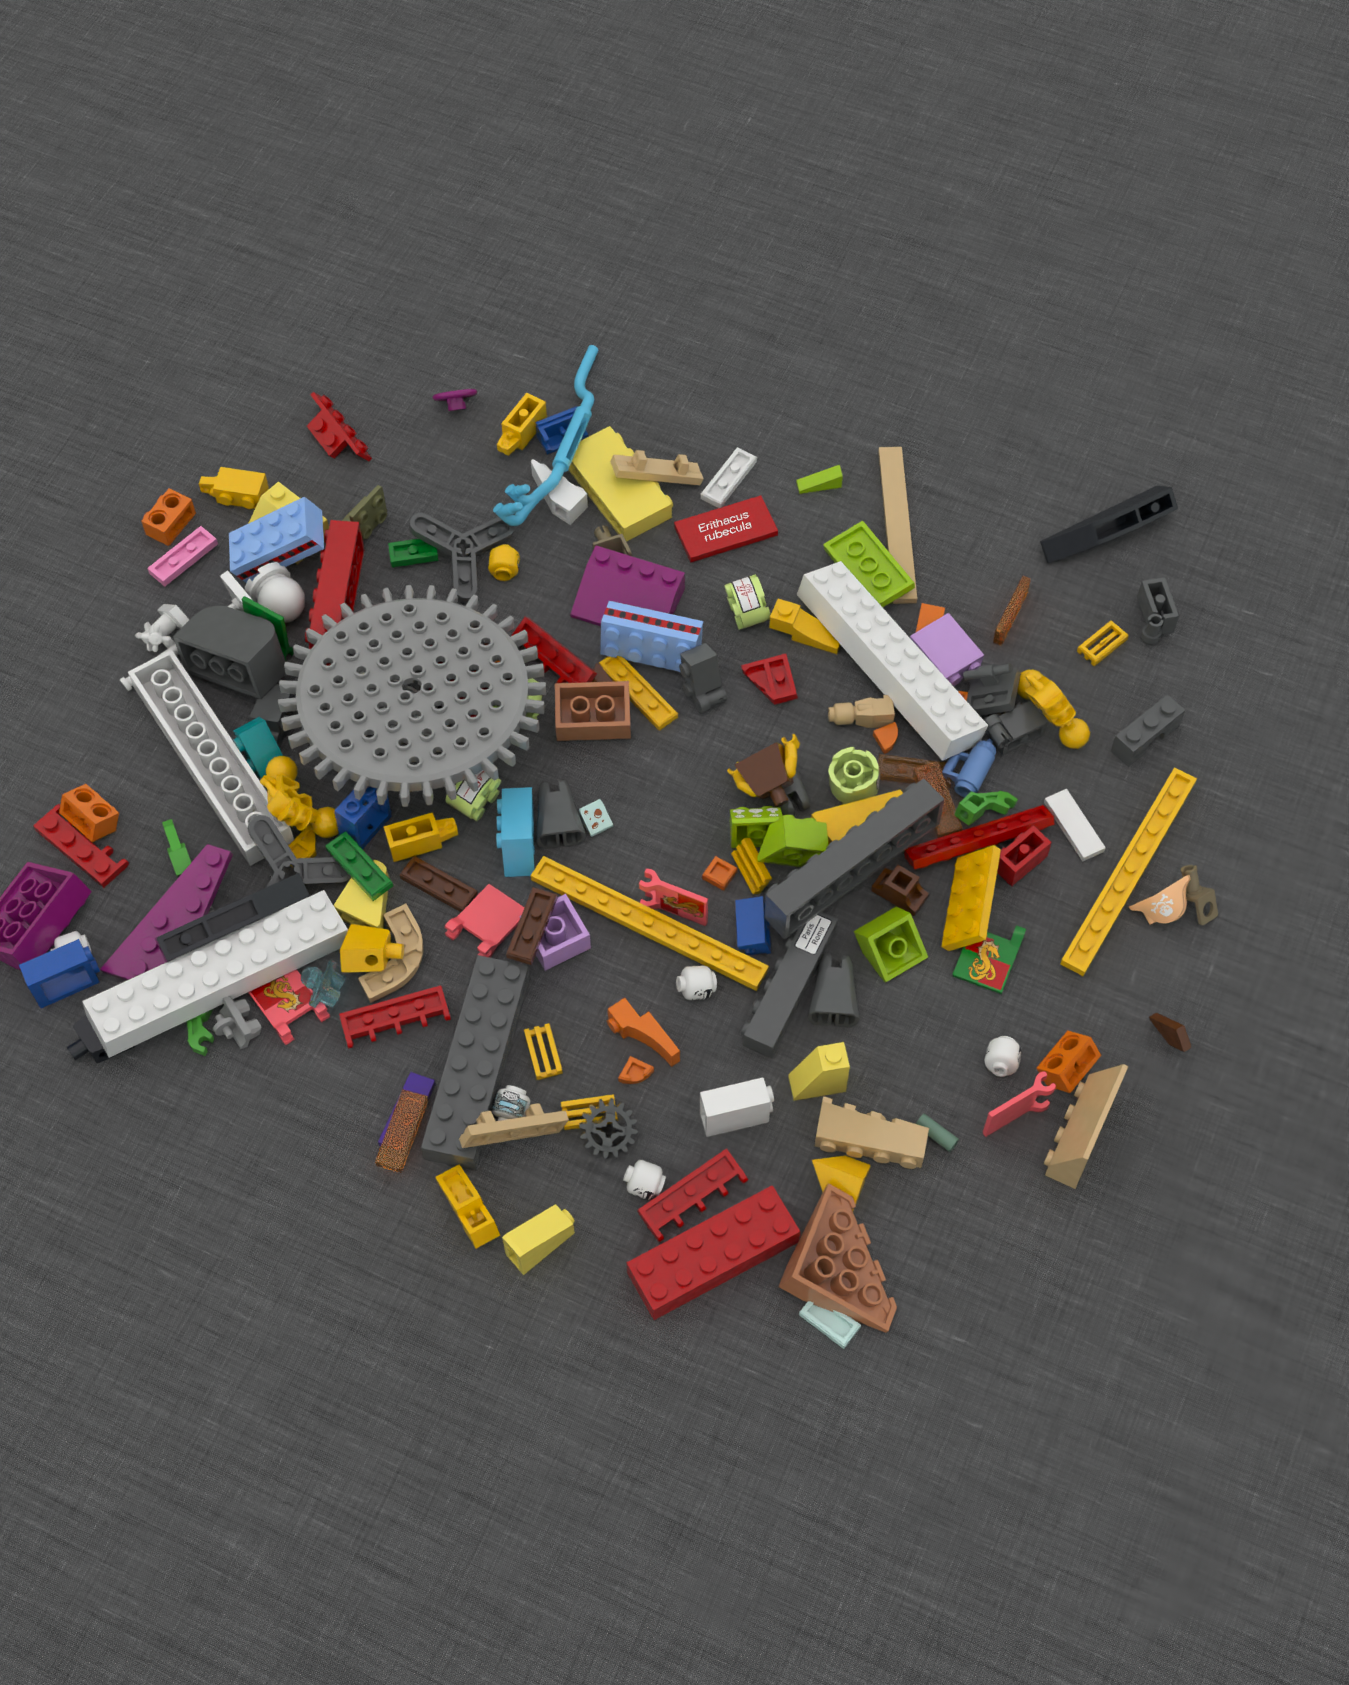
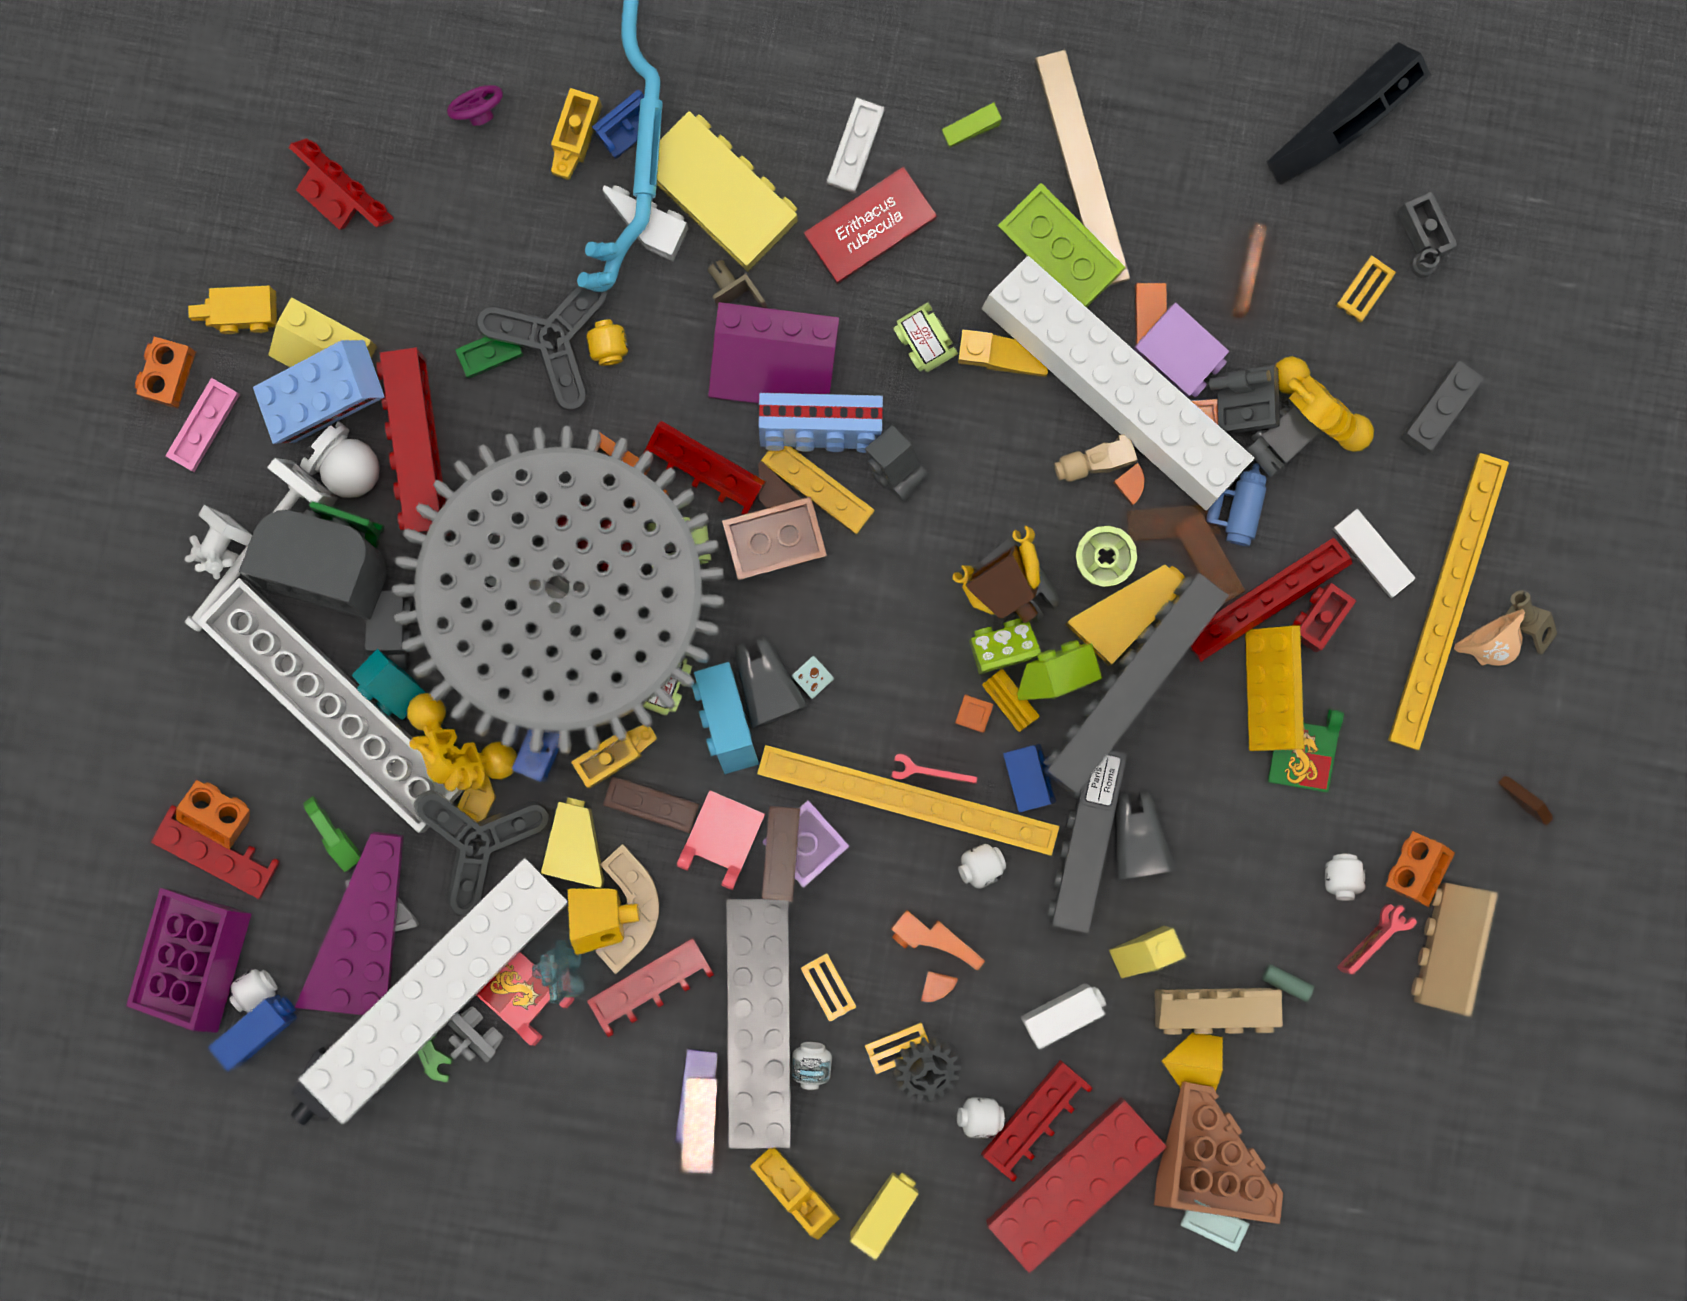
camera: 15 degrees left, 25 degrees up
(231, 917) = (428, 926): black slope -> none
(359, 866) = (556, 817): green tile -> none
(369, 512) = (411, 316): olive bracket -> none
(534, 1124) = (802, 1117): tan hinge -> none
(658, 470) = (765, 167): tan hinge -> none
(772, 678) = (978, 434): red wing -> none
(891, 943) = (1192, 762): lime slope -> none
(901, 889) = (1190, 693): reddish brown brick -> none
(975, 804) = (1276, 546): bright green piece -> none

